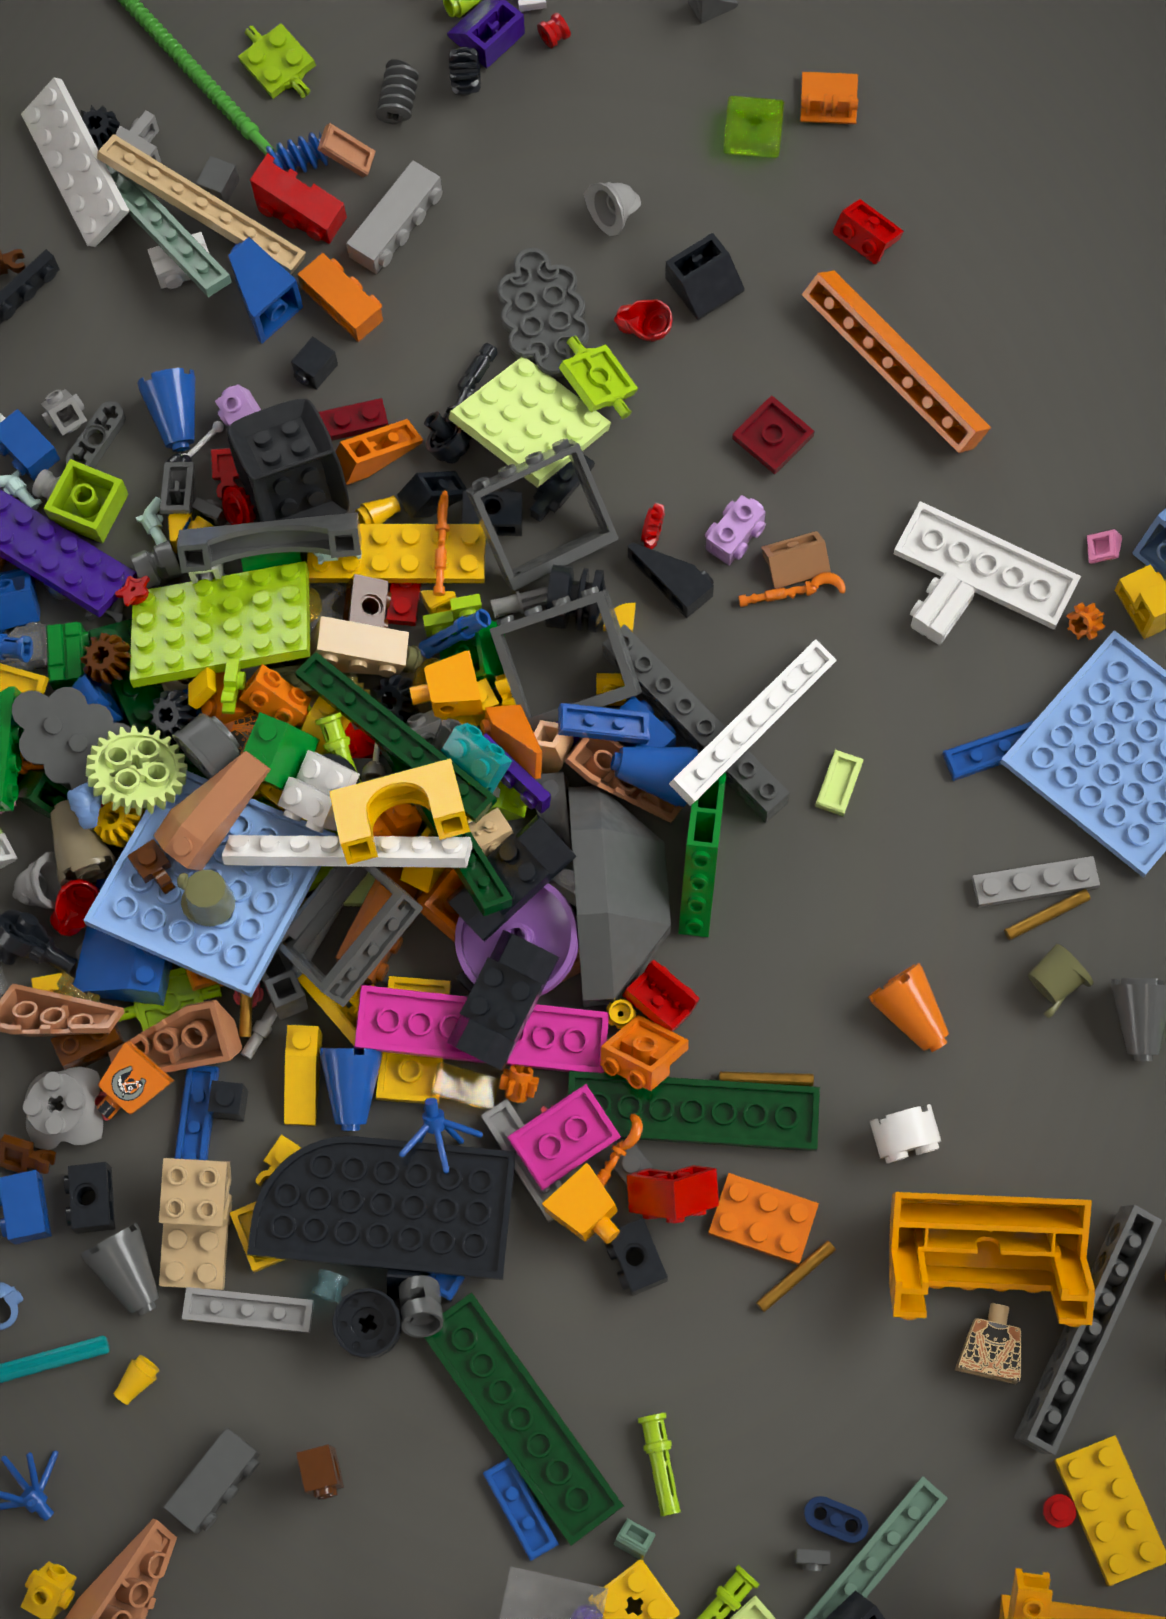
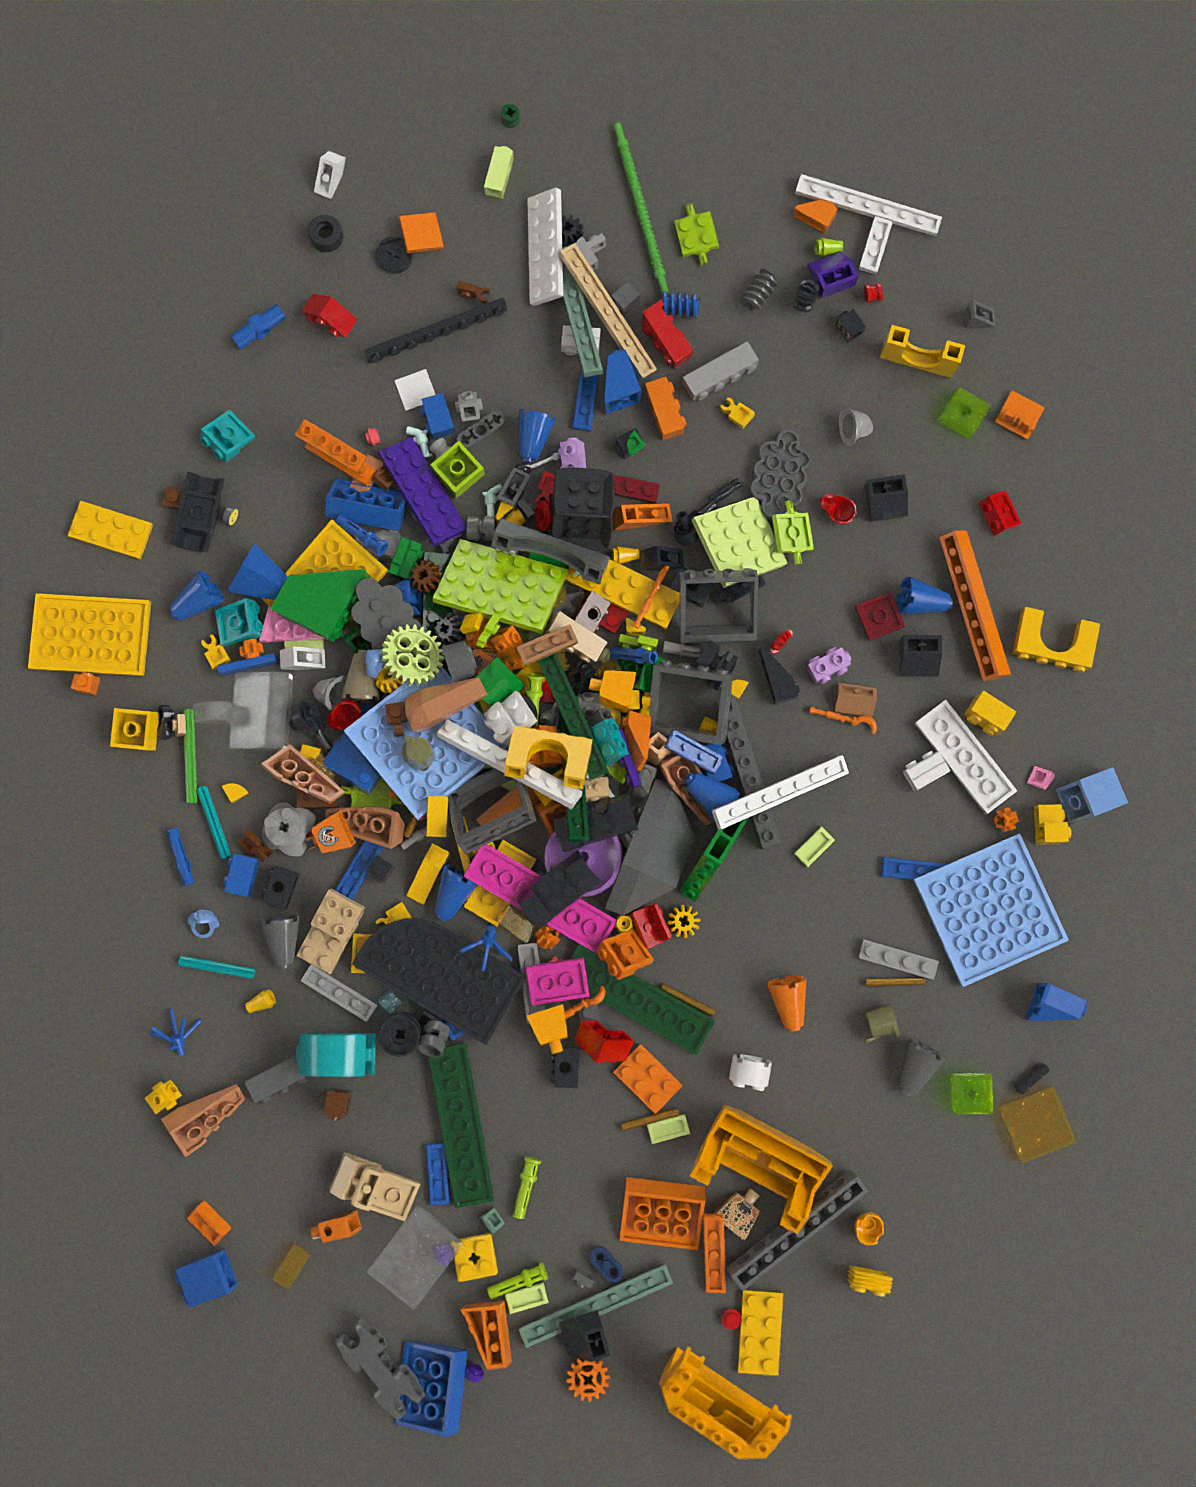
camera: 20 degrees right, 10 degrees up
(134, 590) = (460, 545): red plate -> none
(226, 339) = (585, 403): none -> blue tile
(276, 976) = (437, 816): none -> yellow slope
(283, 1393) = (336, 1054): none -> teal animal
(321, 357) = (634, 444): none -> green tile
(324, 665) = (547, 645): none -> medium nougat plate
(346, 150) = (711, 315): nougat tile -> none
(433, 1572) = (373, 1187): none -> tan piece
(449, 260) = (738, 414): none -> yellow plate
(543, 83) = (850, 325): none -> black brick
(686, 77) = (940, 362): none -> yellow arch
(694, 971) = (677, 923): none -> yellow gear
(818, 383) = (921, 598): none -> blue cone
(829, 1277) = (668, 1129): none -> yellowish green tile
(855, 458) = (920, 655): none -> black slope
(881, 1404) = (662, 1213): none -> orange slope
(986, 1423) = (714, 1253): none -> orange tile
(989, 490) = (989, 714): none -> yellow brick
(998, 380) = (1029, 642): none -> yellow arch

